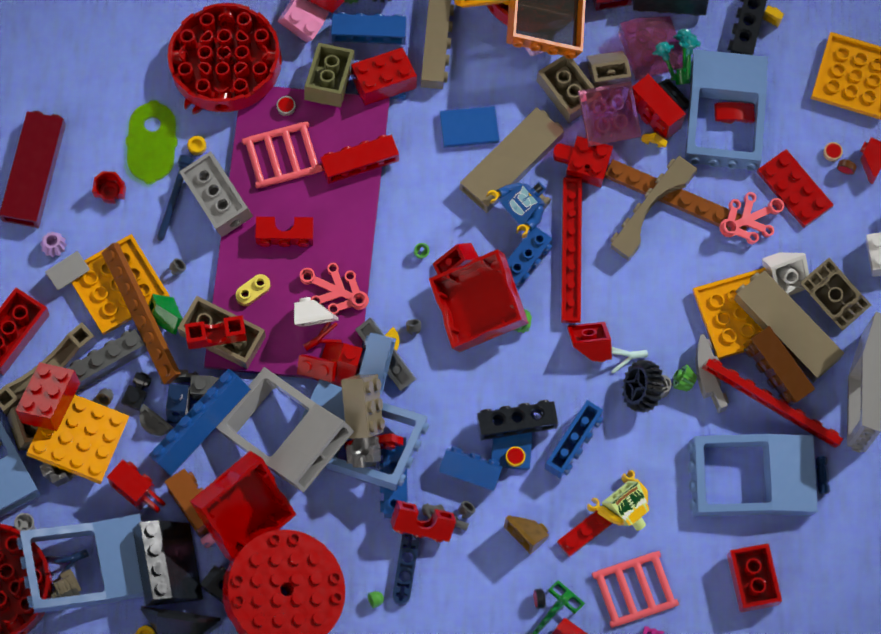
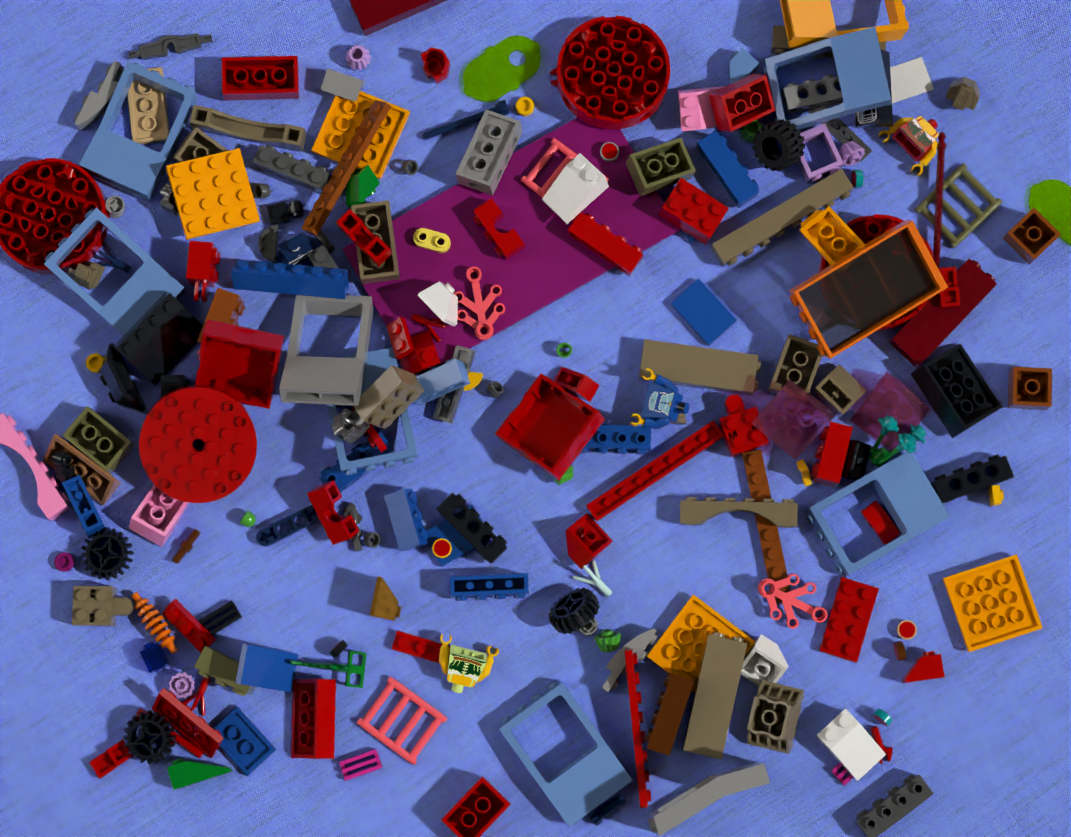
camera: 60 degrees right, 10 degrees up
(48, 396) = (222, 147): red brick -> none
(298, 147) = (575, 188): none -> white slope

